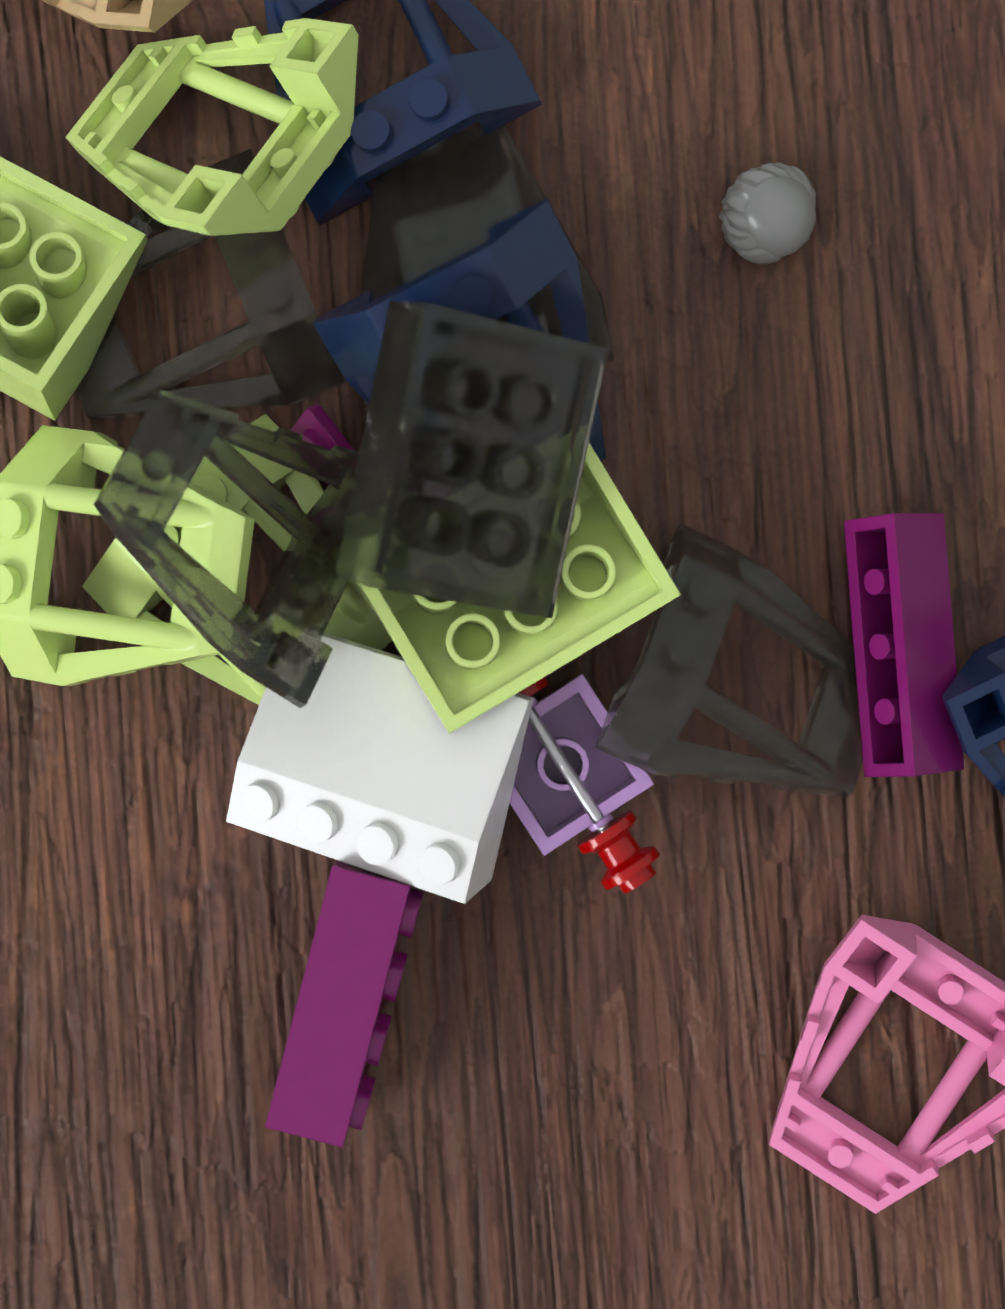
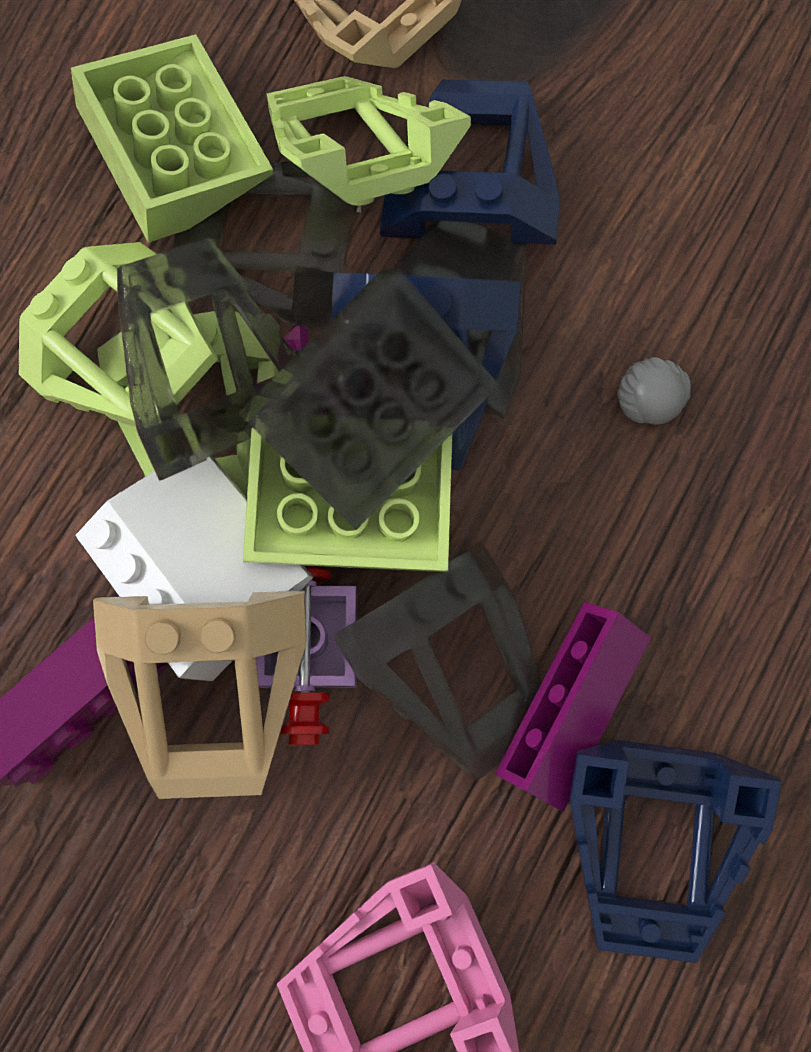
camera: 30 degrees right, 10 degrees down
(461, 850) = (192, 633): none -> tan windscreen

